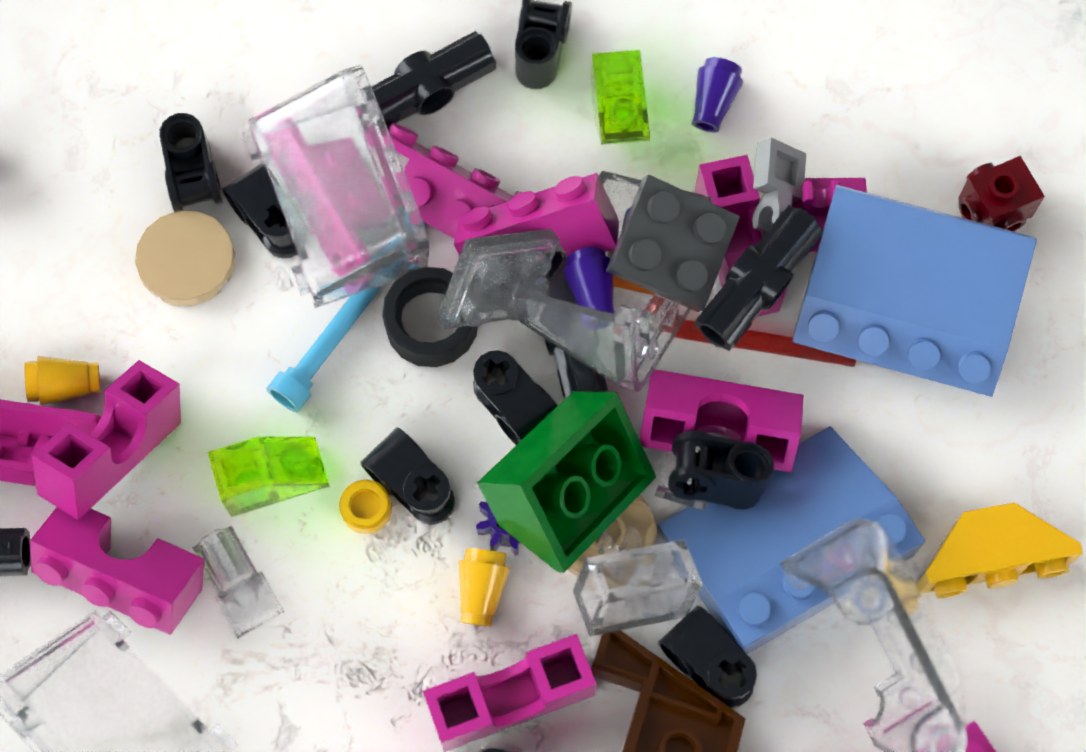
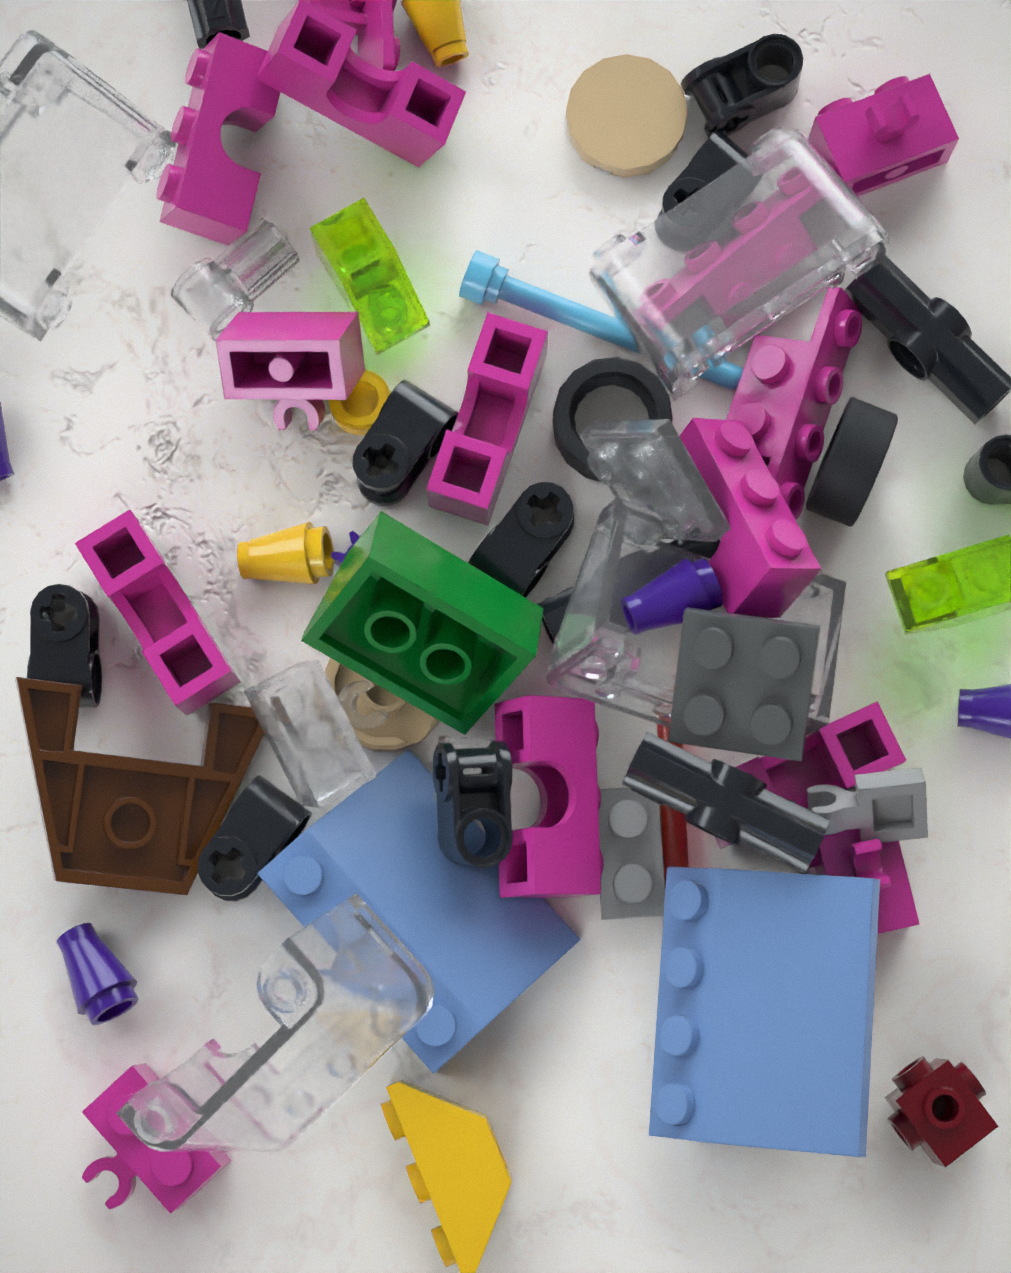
camera: 80 degrees right, 10 degrees up
(257, 69) = (885, 134): none -> dark pink brick
(323, 542) = (291, 360): none -> dark pink brick
(385, 391) = (490, 419): none -> dark pink arch
(510, 148) = (852, 462): none -> black tyre
(774, 371) = (631, 856): none -> light grey plate

